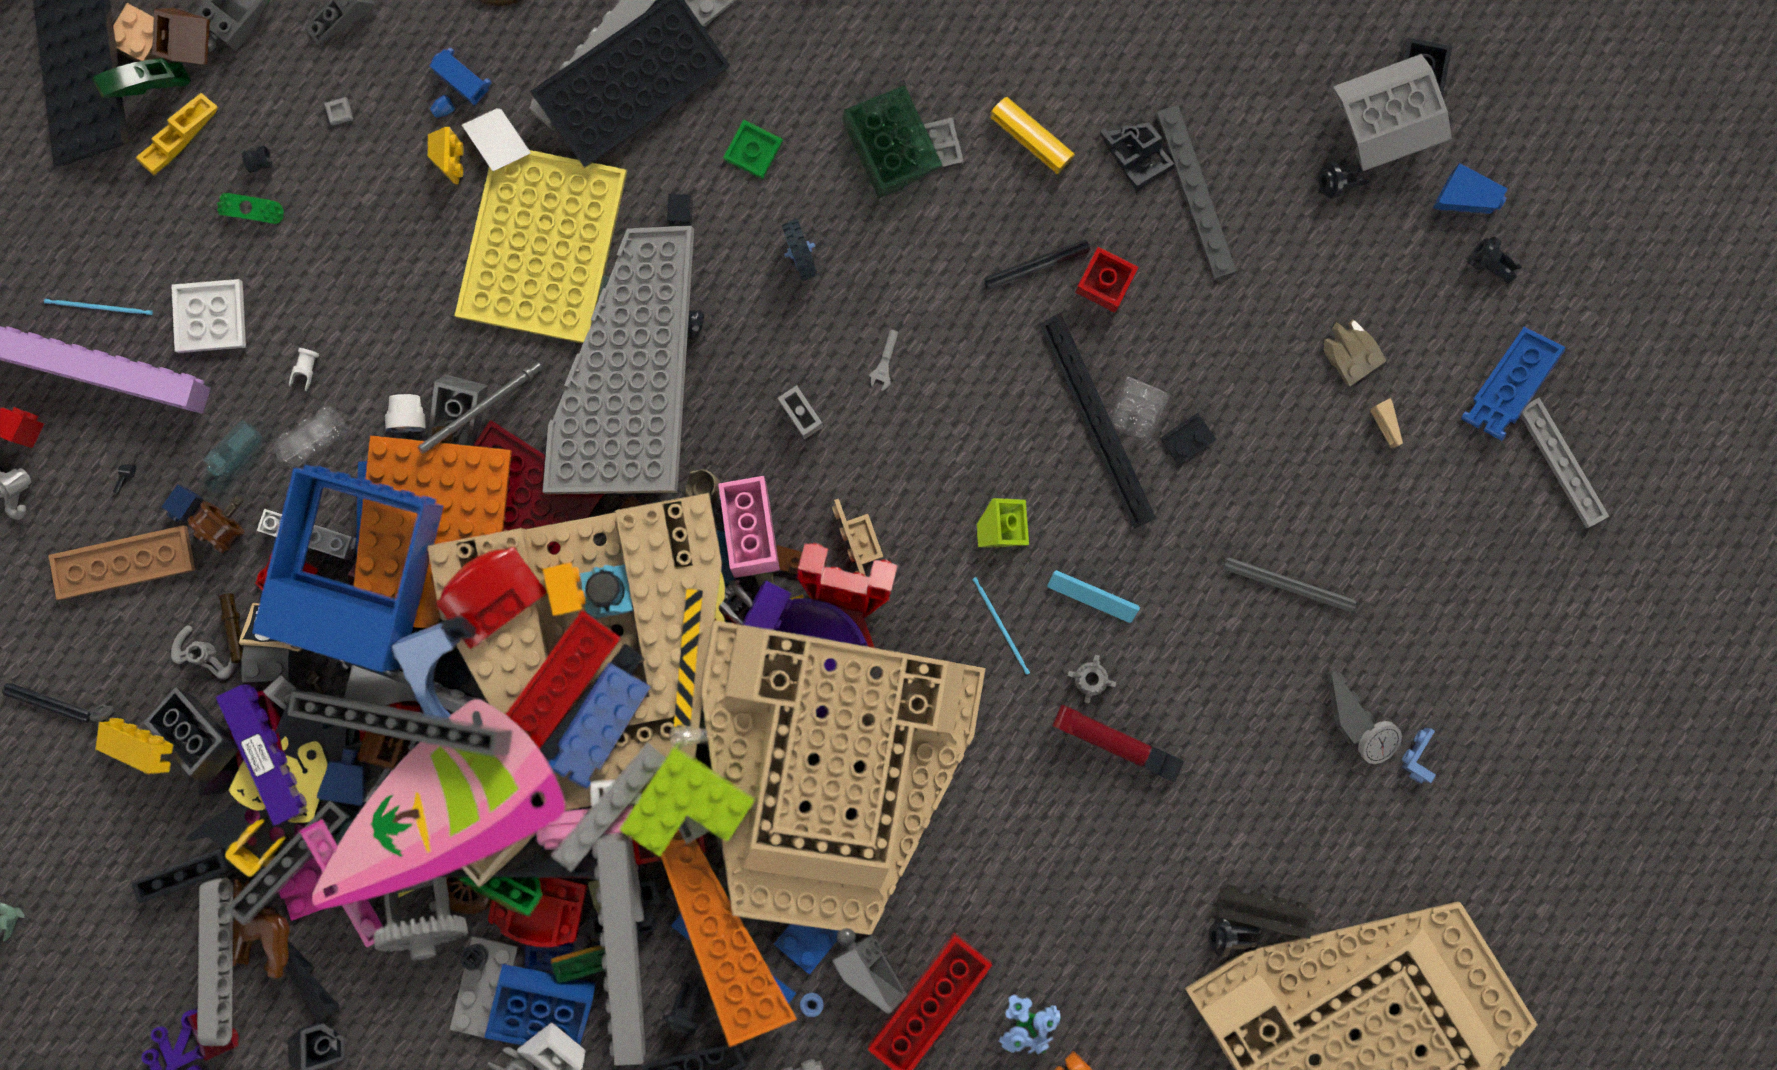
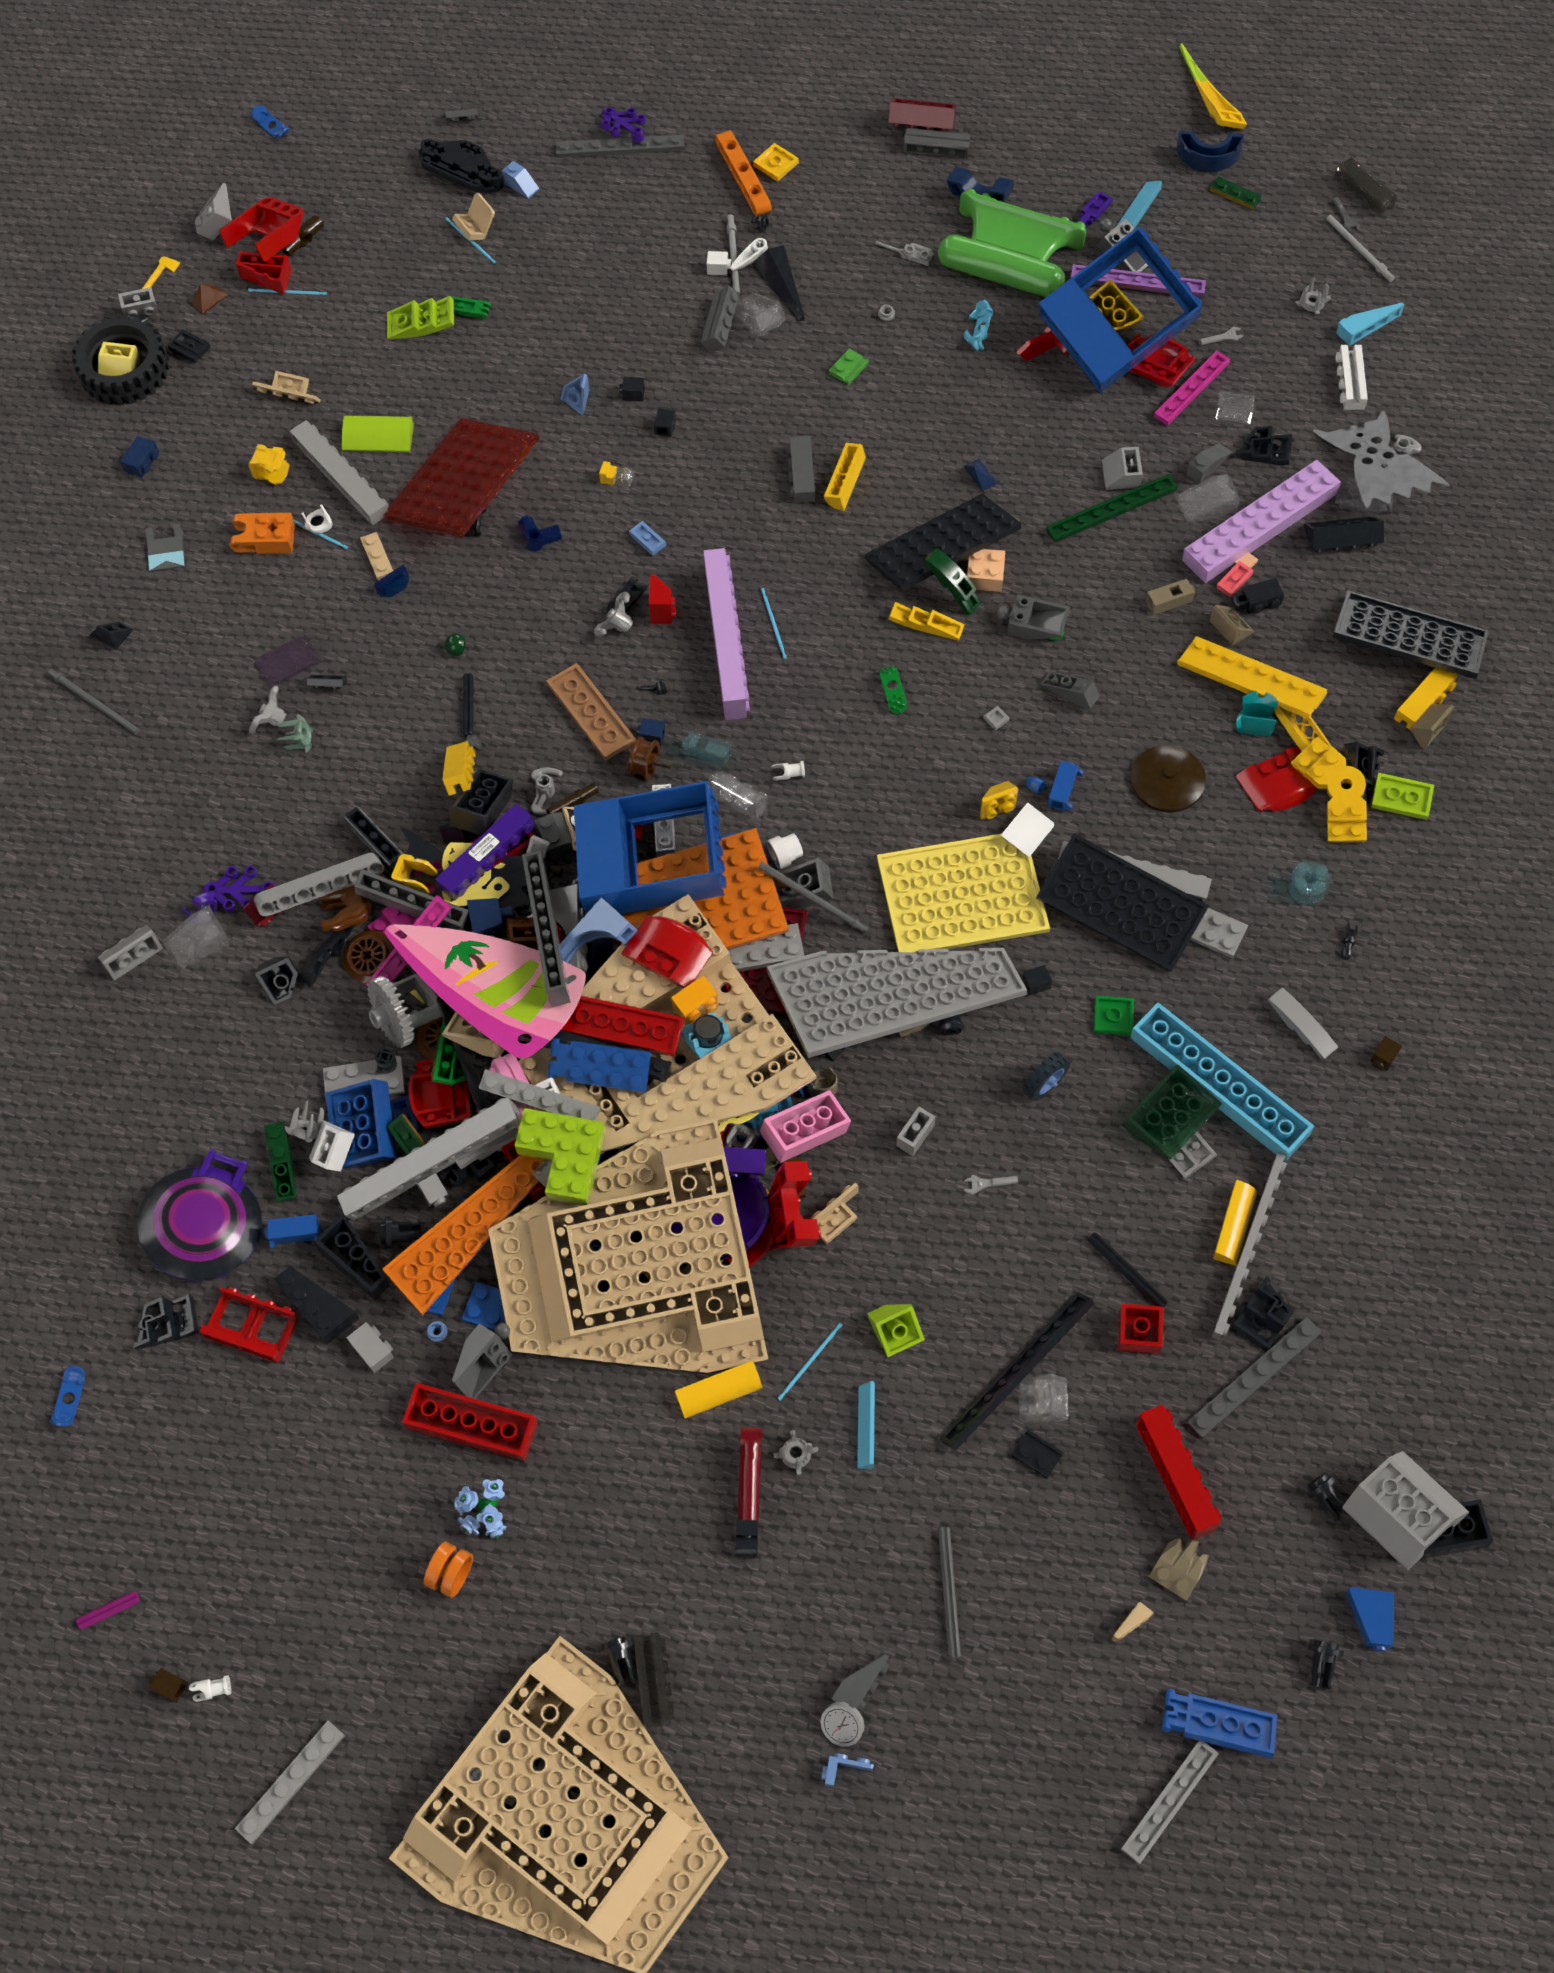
camera: 70 degrees right, 20 degrees down
(180, 36) = (997, 592): reddish brown slope -> none
(208, 316) = (799, 694): white plate -> none
(256, 159) = (932, 678): black wheel -> none
(322, 955) = (349, 958): none -> reddish brown piece
(458, 628) = (633, 935): black plate -> none
(524, 482) = (768, 951): none -> light grey plate
(656, 957) = (433, 1190): none -> light grey brick
(686, 736) = (617, 1135): clear cone -> none
(688, 657) = (678, 1112): sticker -> none
(896, 63) = (1241, 1095): none -> medium azure brick
(995, 732) = (718, 1389): none -> yellow brick
(1068, 137) = (1247, 1253): none -> light grey plate
(1266, 310) = (1178, 1472): none -> red brick

